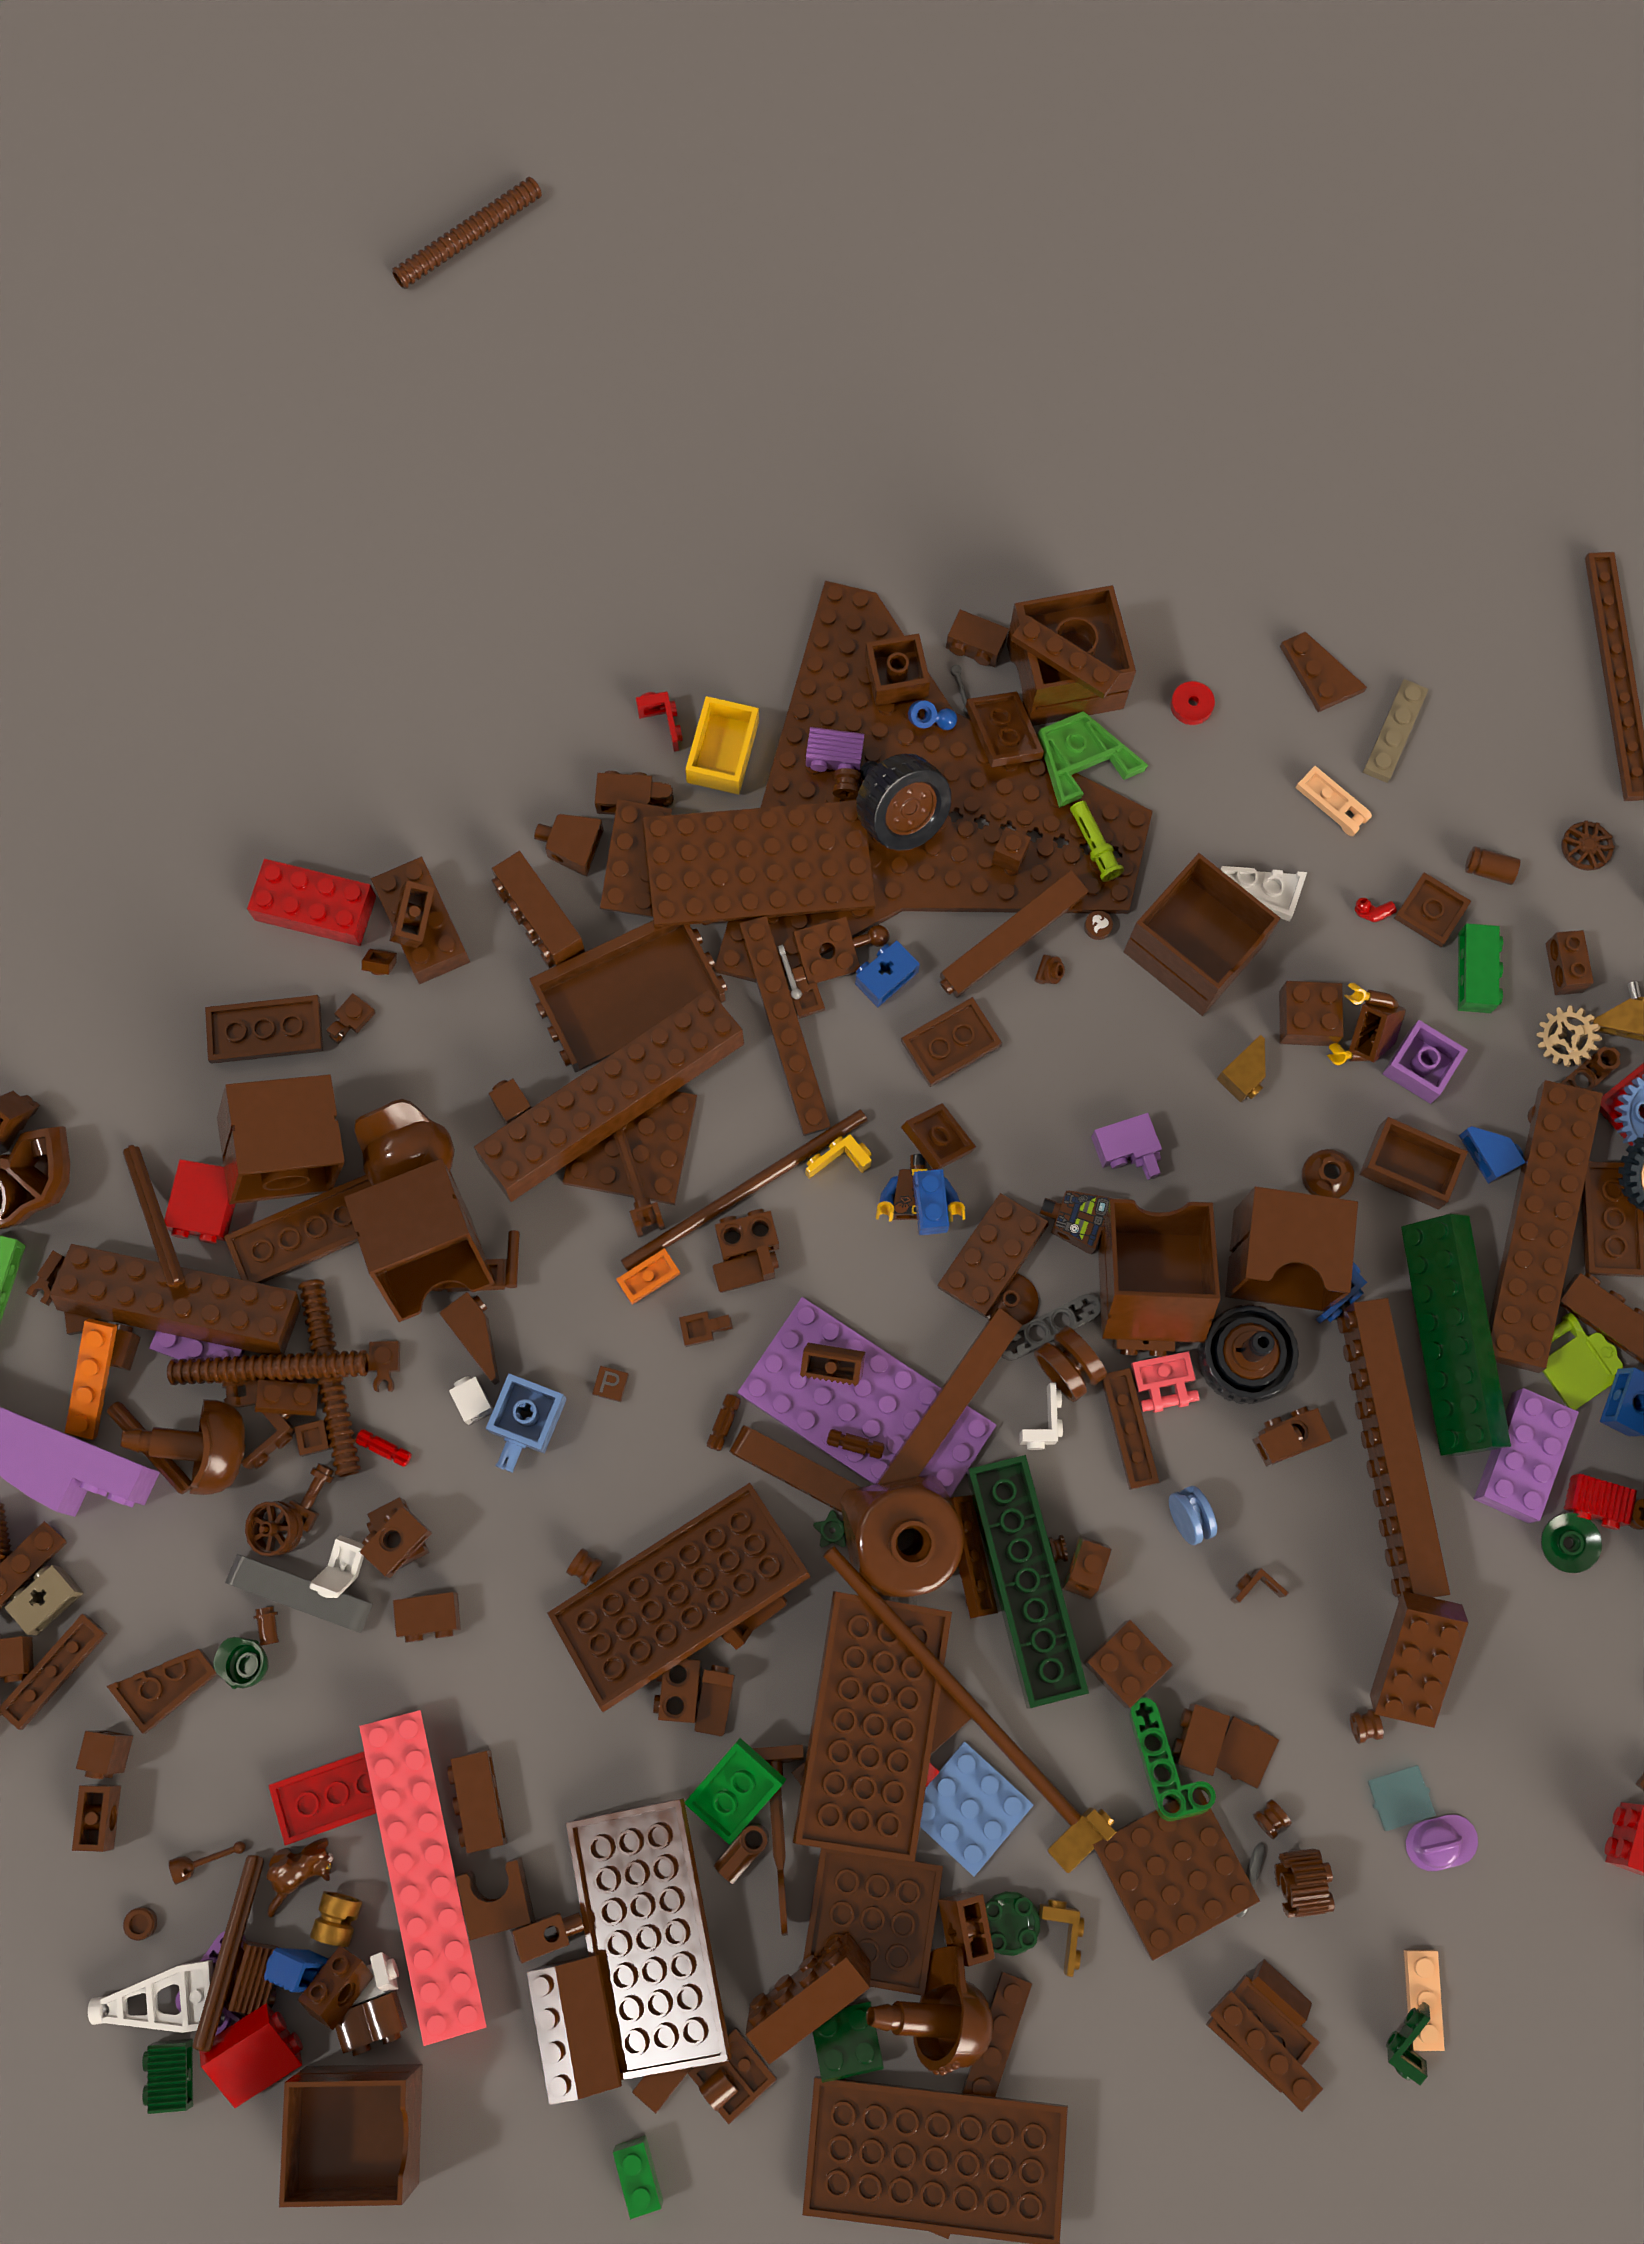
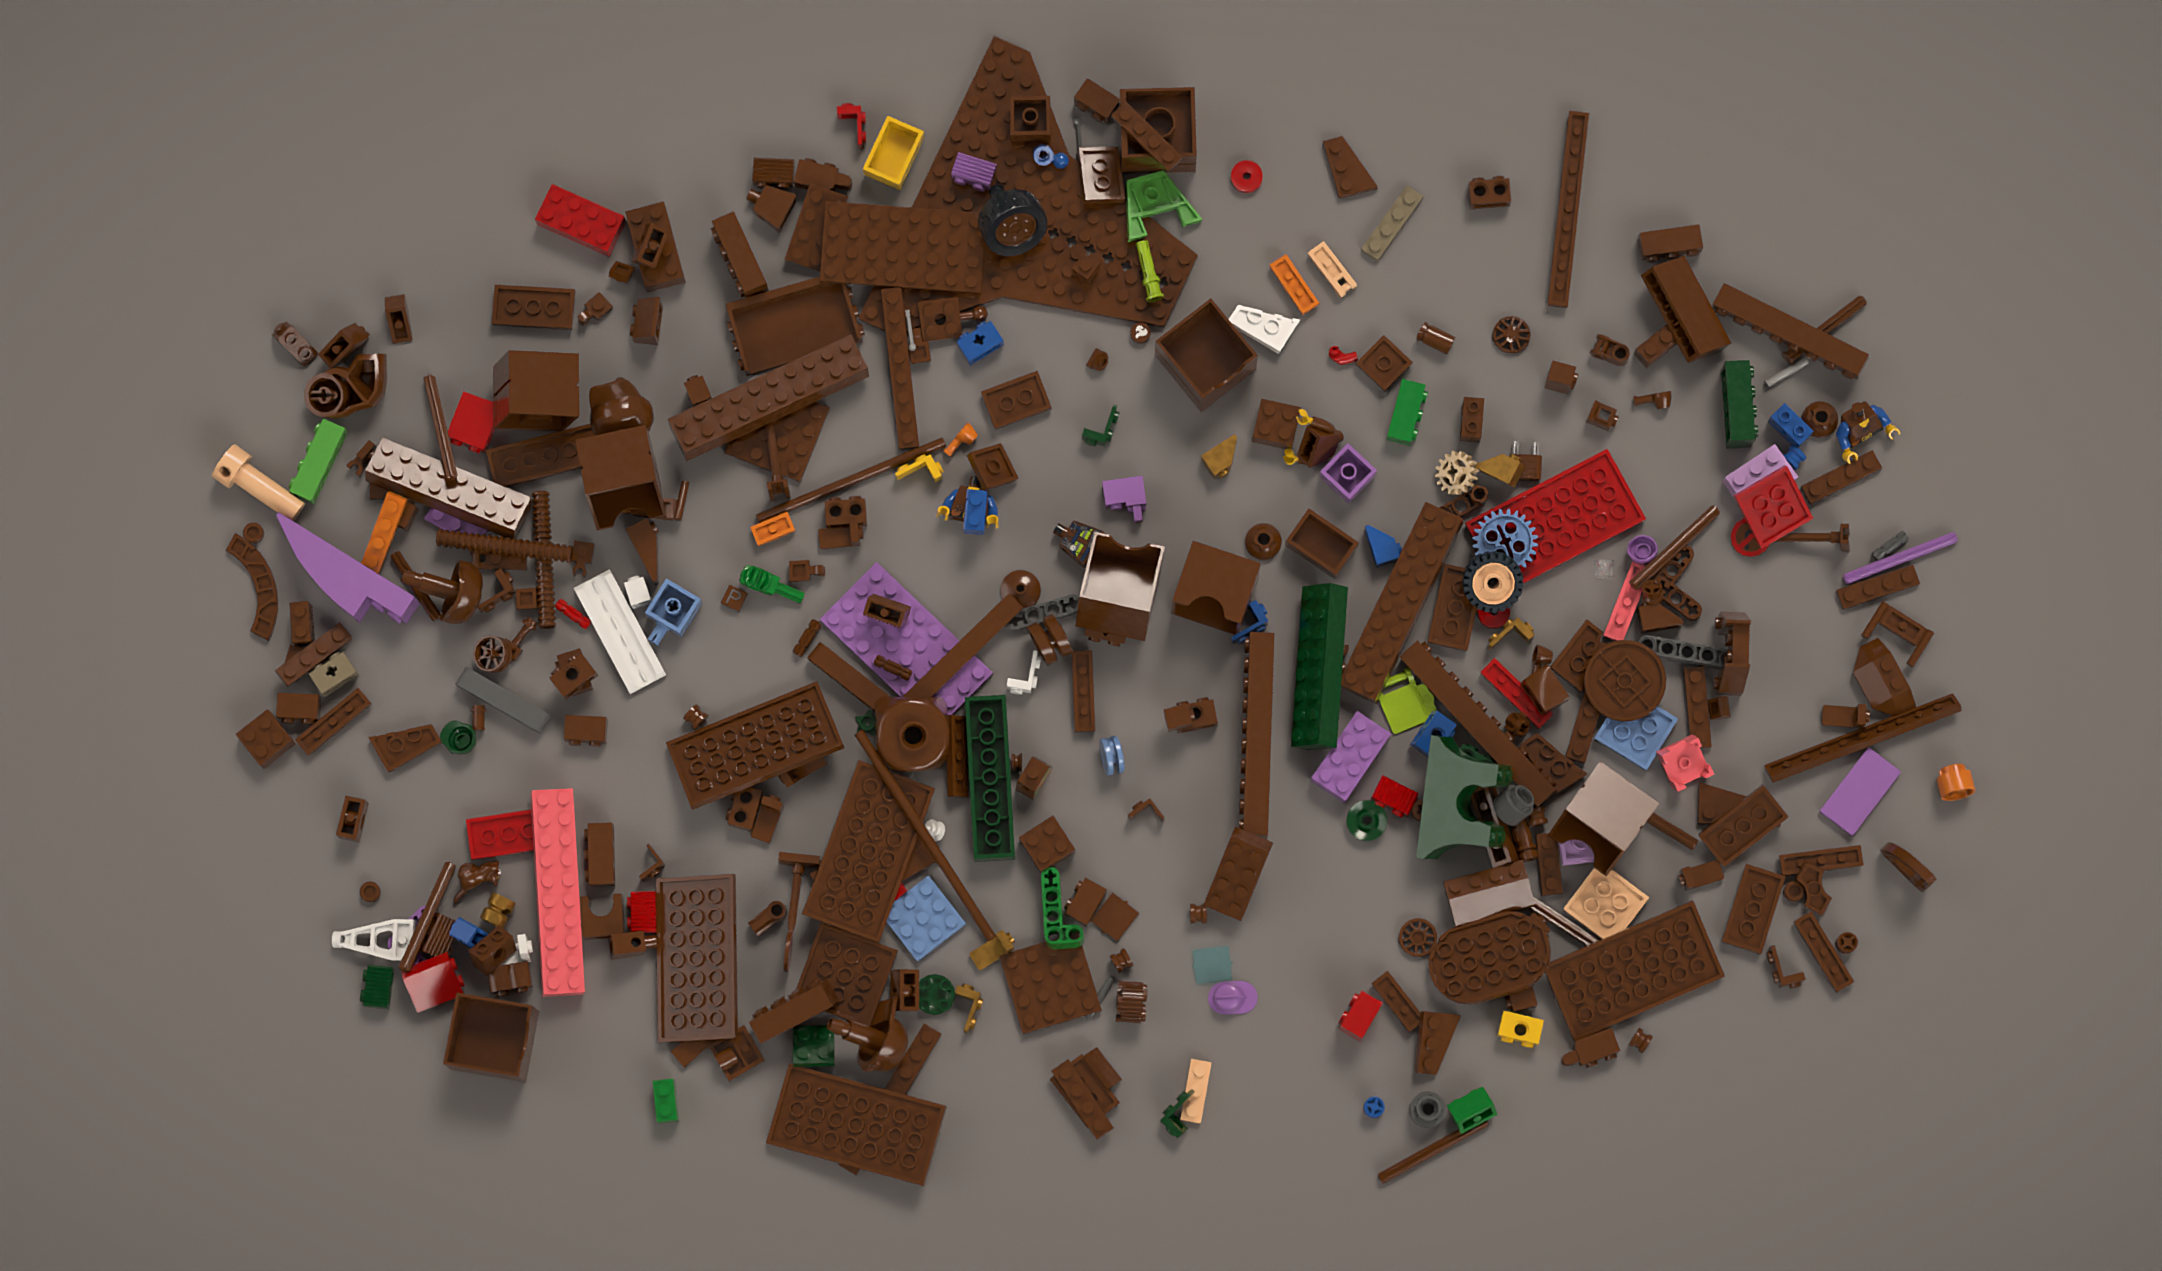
camera: 15 degrees right, 5 degrees up
(76, 1076) = (398, 318): none -> reddish brown slope
(104, 1753) = (363, 779): reddish brown brick -> none
(183, 1867) = (403, 861): reddish brown hinge -> none
(286, 1398) = (513, 568): reddish brown plate -> none
(341, 1569) = (534, 687): white bracket -> none
(425, 1020) = (647, 321): none -> reddish brown slope
(454, 1462) = (619, 631): none -> white plate
(554, 1880) = (642, 912): none -> red brick
(561, 1810) = (654, 870): none -> reddish brown bracket
(565, 796) = (773, 173): none -> reddish brown brick
(573, 2029) = (640, 1004): reddish brown slope -> none
(653, 1354) = (767, 583): none -> green gear
(735, 1791) = (769, 877): green plate -> none
(846, 783) = (977, 198): reddish brown wheel -> none
(892, 1100) = (966, 435): none -> orange bar
(962, 1669) = (936, 829): none -> white wheel
(993, 1255) = (1014, 556): reddish brown plate -> none
(1013, 934) = (1074, 330): reddish brown brick -> none
(1067, 1074) = (1092, 437): none -> dark green bracket
(1161, 1373) = (1115, 657): coral plate -> none
(1248, 1354) = (1175, 655): black wheel -> none
(1288, 828) = (1294, 284): none -> orange plate
(1515, 675) = (1490, 198): none -> reddish brown brick

